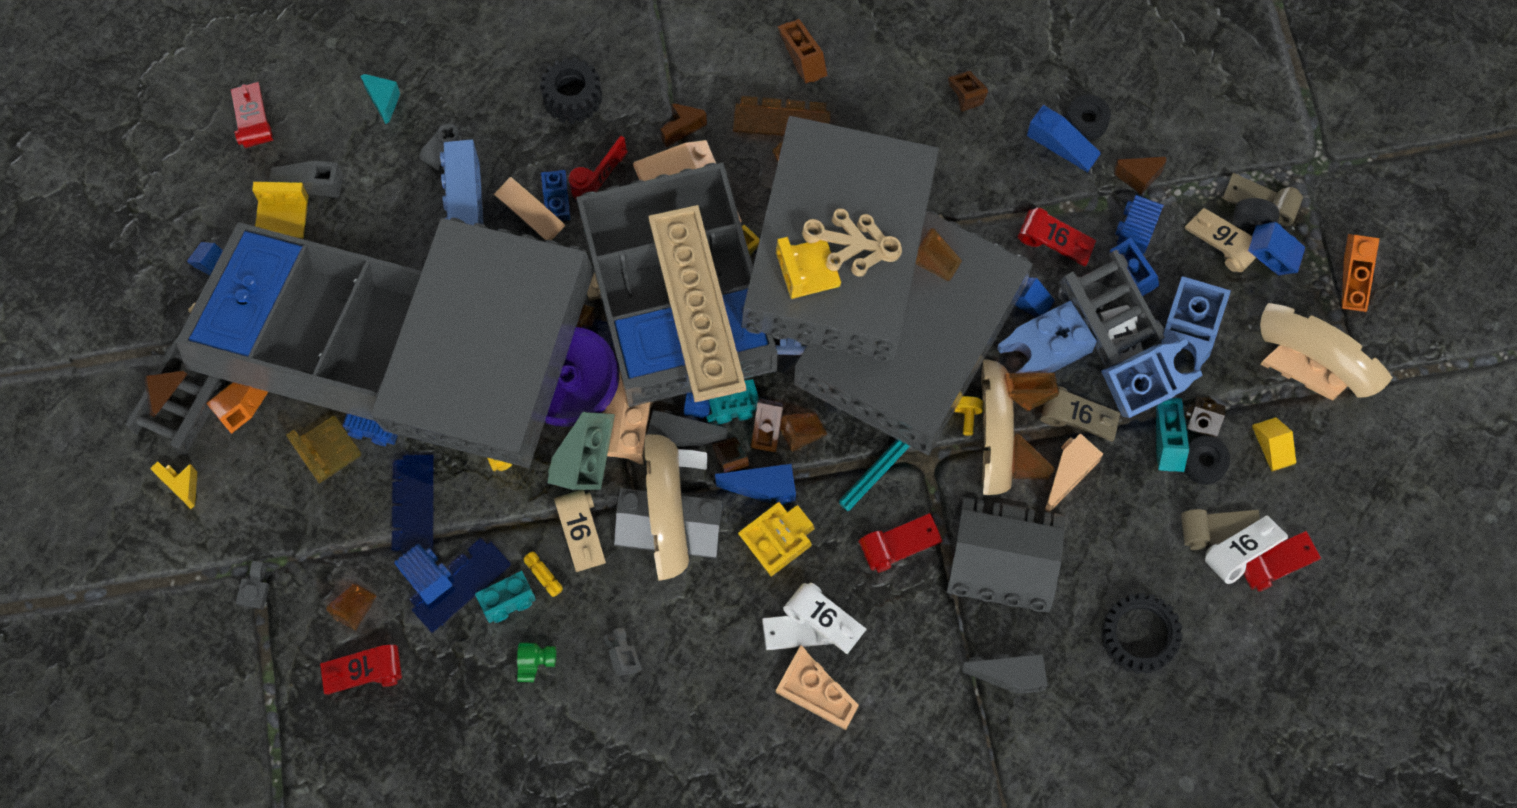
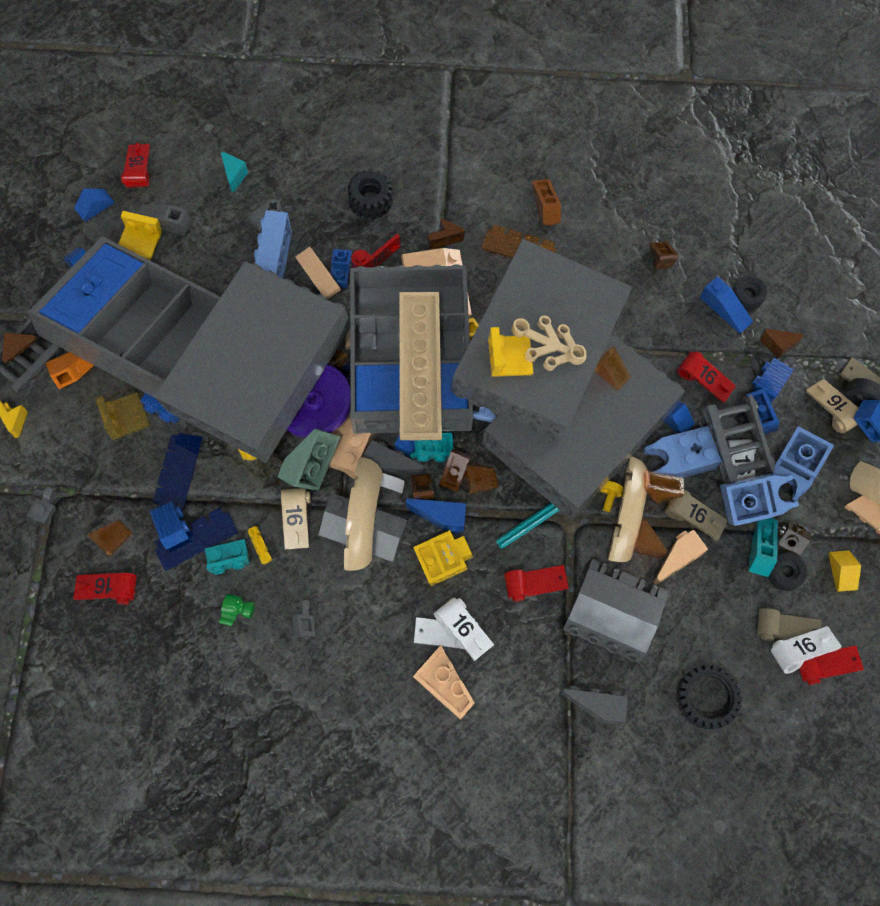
camera: 10 degrees right, 0 degrees up
(205, 178) = (92, 202): none -> blue slope

